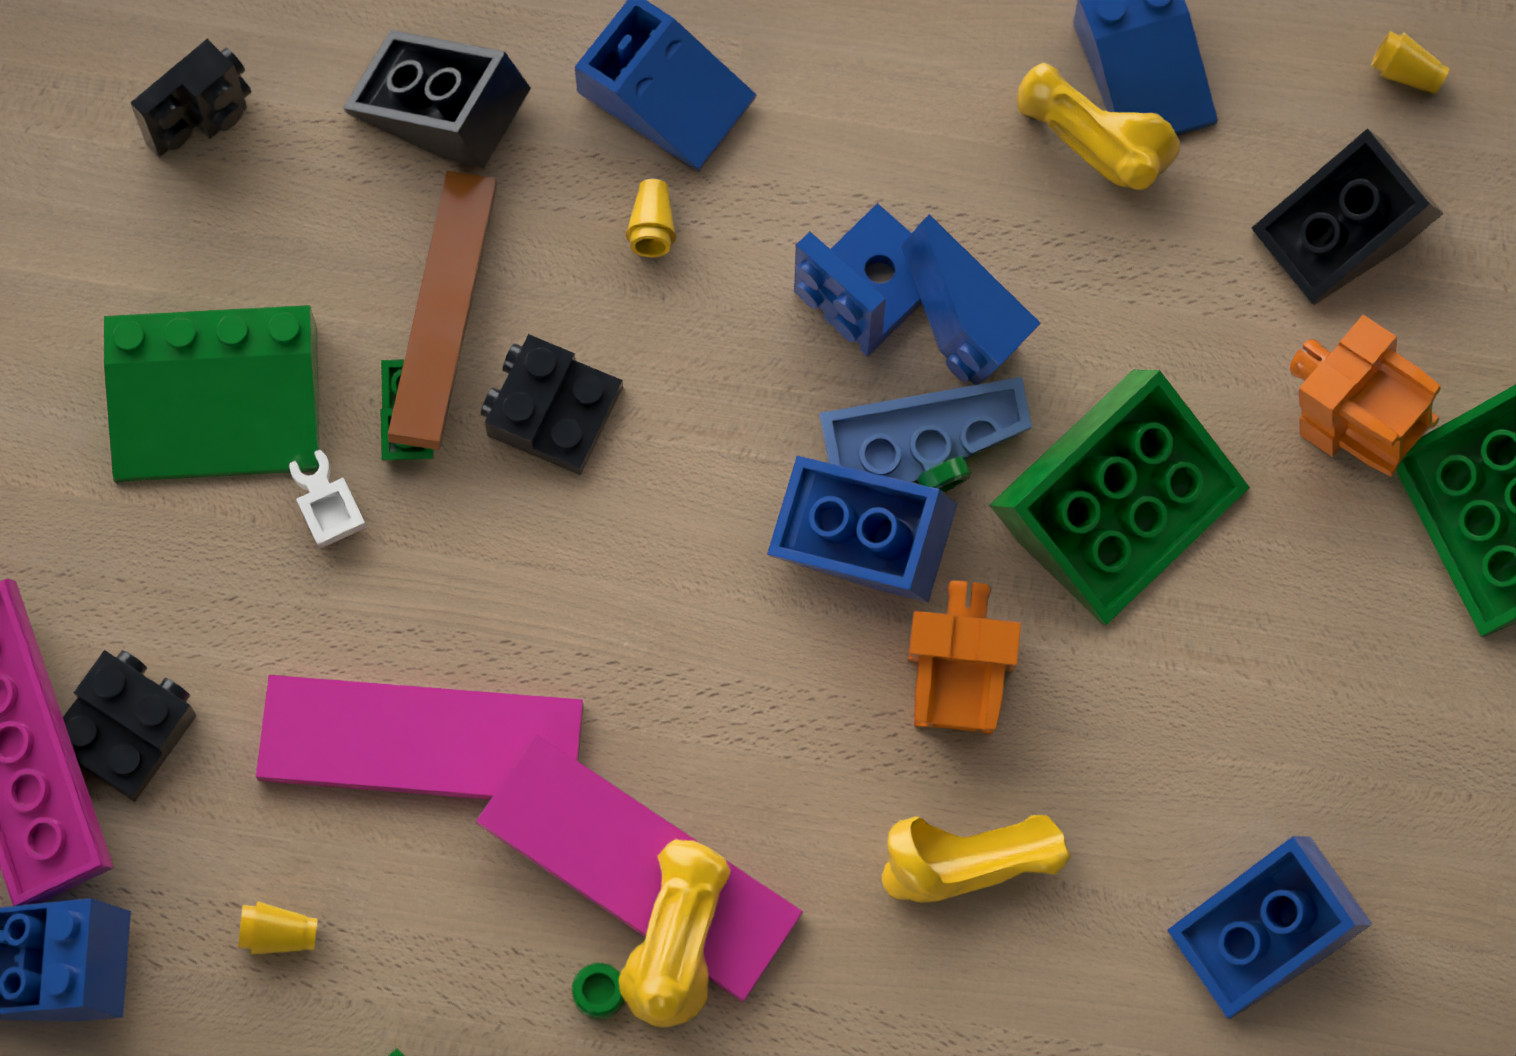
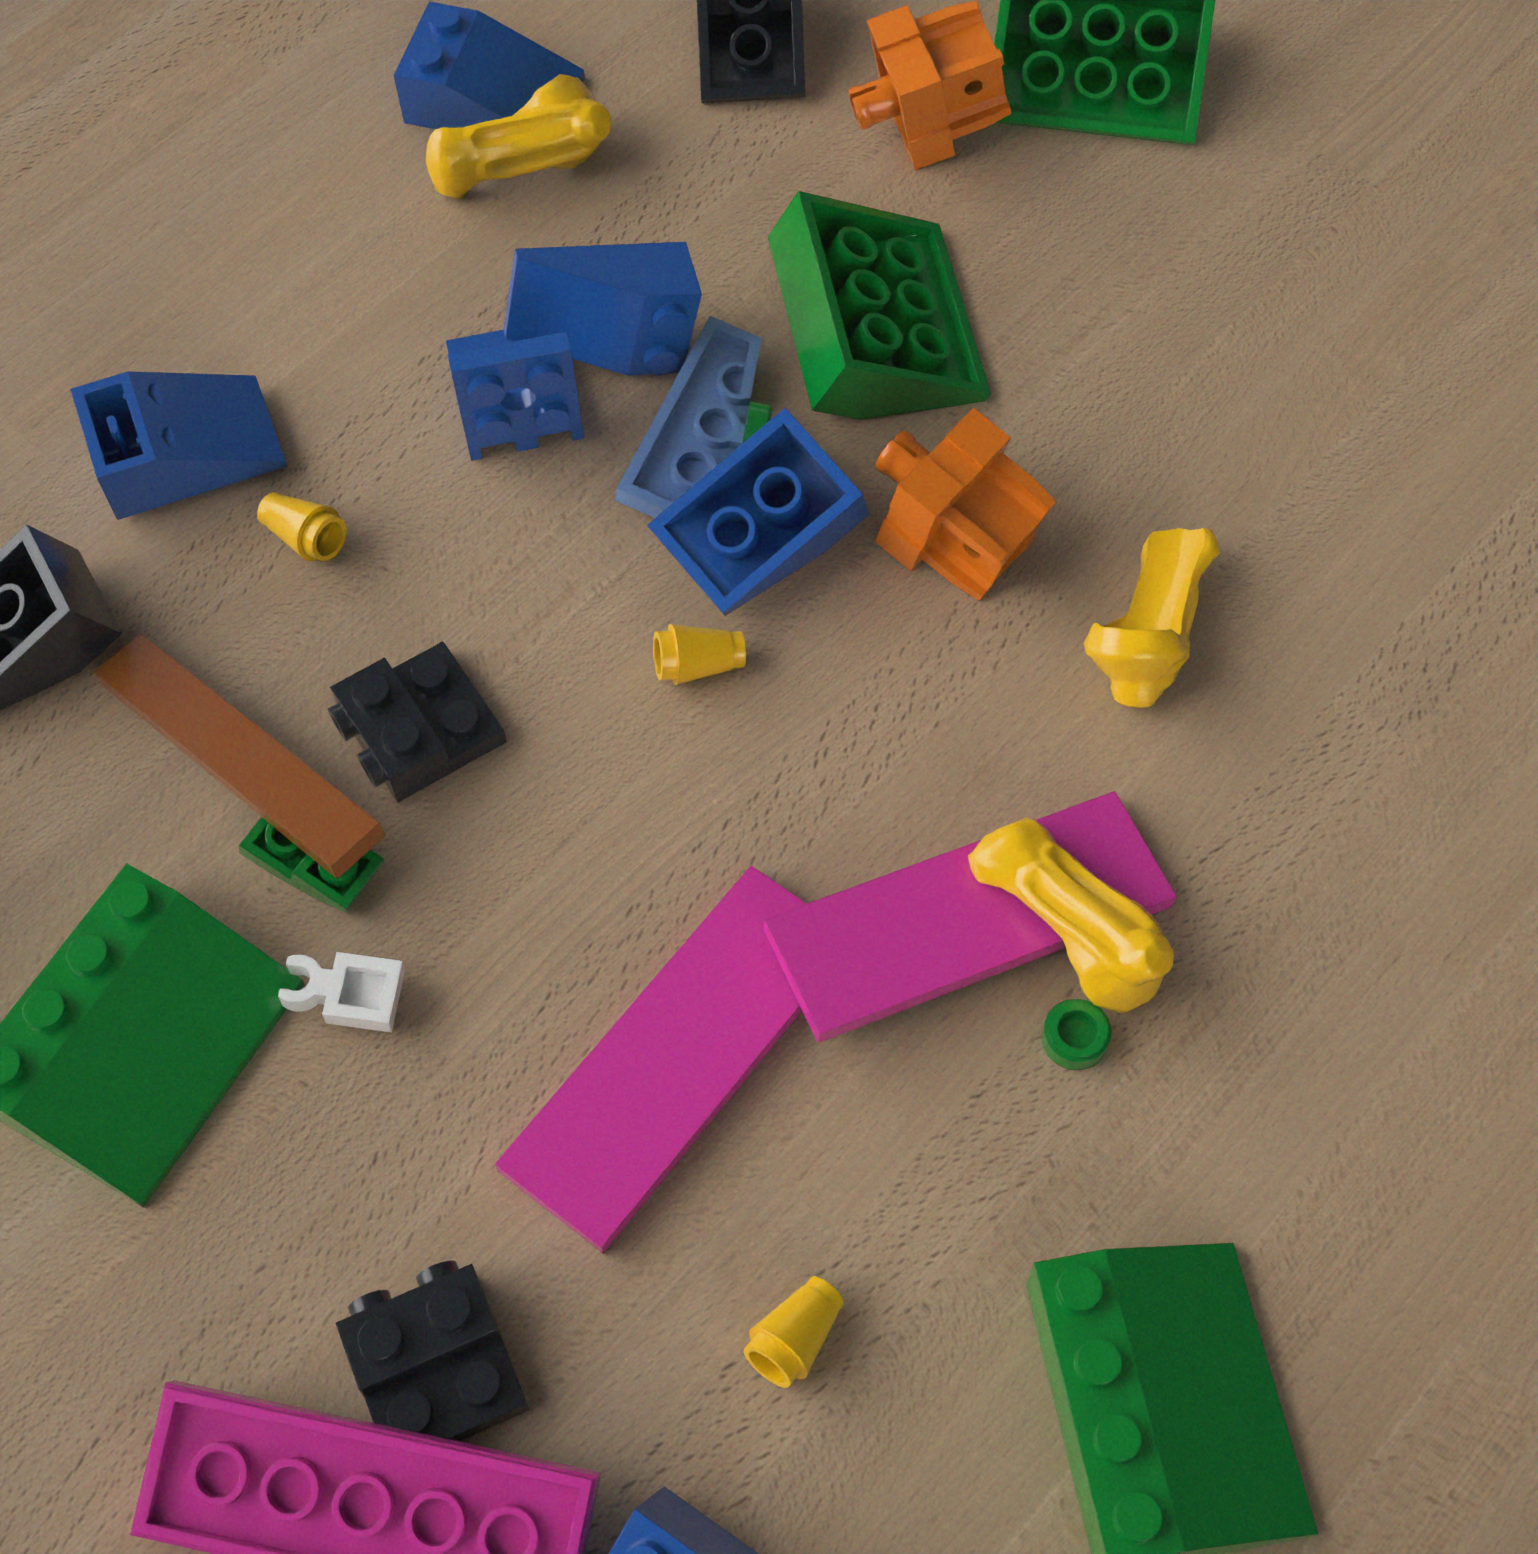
camera: 55 degrees left, 10 degrees down
(726, 556) = (696, 652): none -> yellow cone
(1269, 925) = (1376, 417): blue slope -> none

